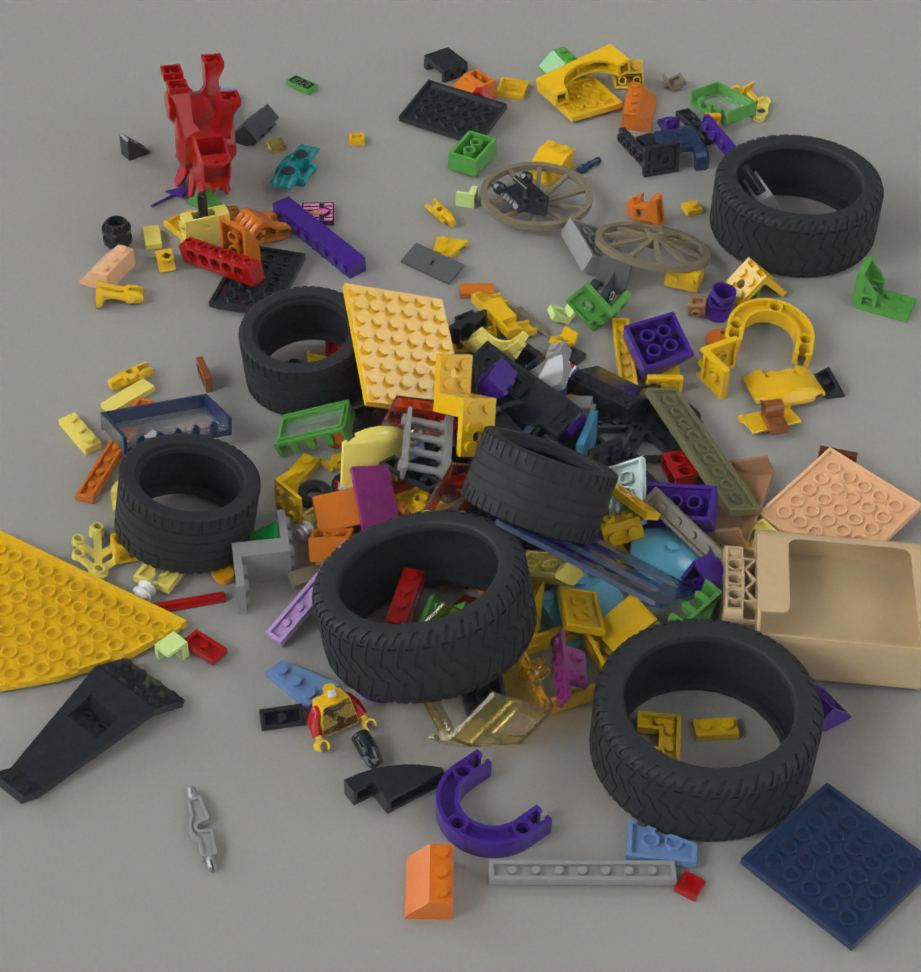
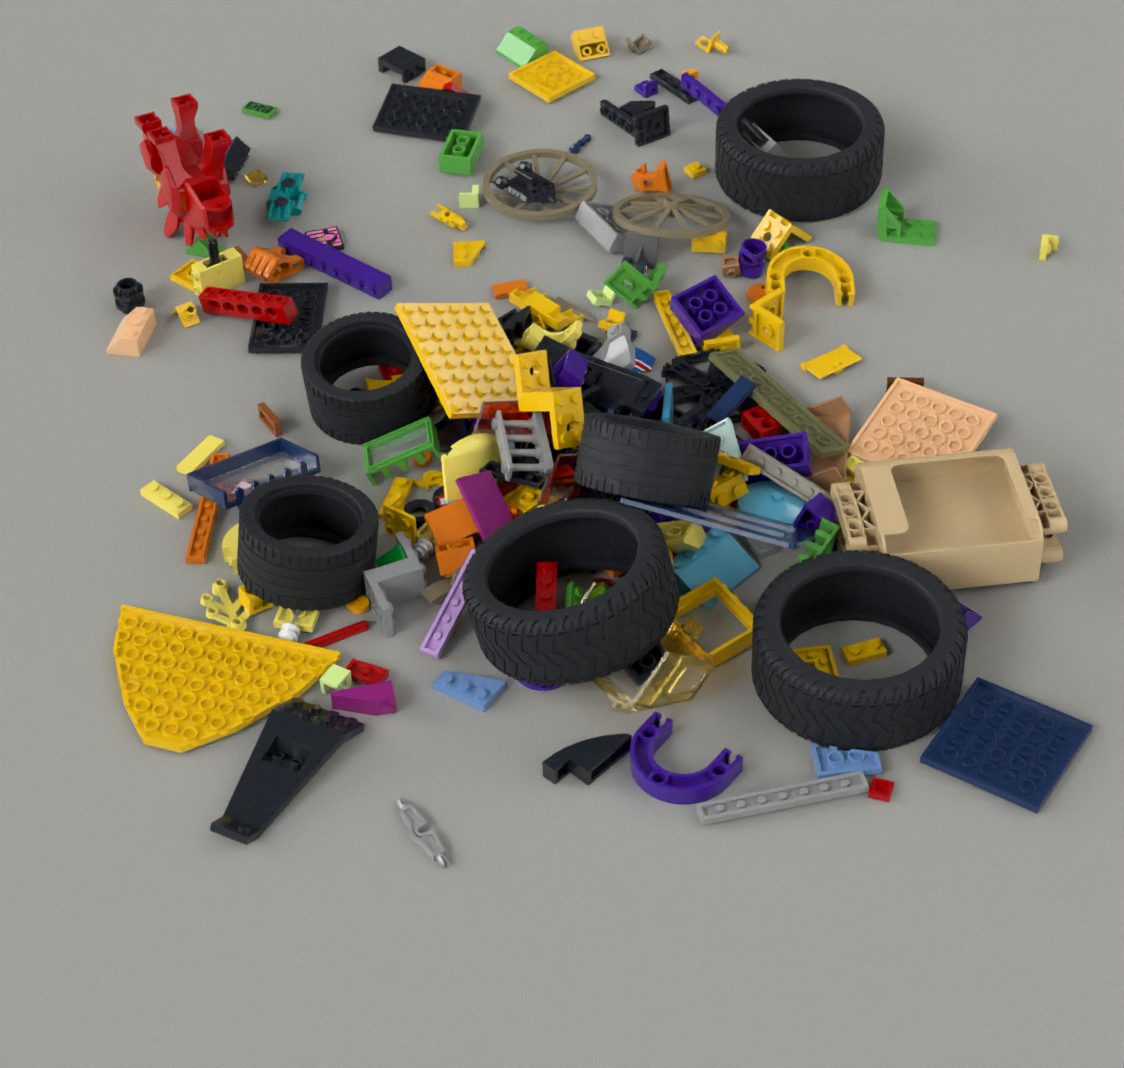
camera: 10 degrees left, 0 degrees up
(127, 293) = (163, 354): yellow piece -> none
(130, 148) = (108, 207): black slope -> none
(130, 376) = (196, 435): yellow hinge -> none
(152, 237) = (164, 294): light yellow tile -> none
(179, 192) = (172, 243): dark purple piece -> none
(197, 675) = (367, 699): none -> magenta slope
(238, 239) = (260, 279): orange slope -> none
(281, 717) = (461, 721): black slope -> none
(333, 713) = (511, 706): torso -> none
(356, 139) = (336, 157): yellow tile -> none
(367, 748) = (552, 732): black hinge -> none
(430, 883) = (649, 834): orange slope -> none
(442, 269) = (469, 272): dark grey piece -> none
(512, 88) = (477, 77): yellow tile -> none
(553, 153) = (544, 138): yellow slope -> none
(569, 668) = (717, 623): magenta bracket -> none
(580, 611) = (712, 569): yellow tile -> none
(605, 60) = (565, 33): yellow arch -> none
(610, 393) = (677, 365): black slope -> none
(623, 622) = (754, 576): yellow slope -> none
(638, 108) = (612, 77): orange slope -> none
(654, 439) = (731, 400): none -> dark blue tile
(689, 142) = (677, 104): dark blue piece -> none
(724, 100) = (693, 54): bright green window -> none
(763, 103) = (734, 51): light yellow piece -> none
(773, 416) = (834, 357): dark orange plate -> none
(791, 385) = (835, 328): yellow slope -> none
(829, 384) = (877, 318): black slope -> none

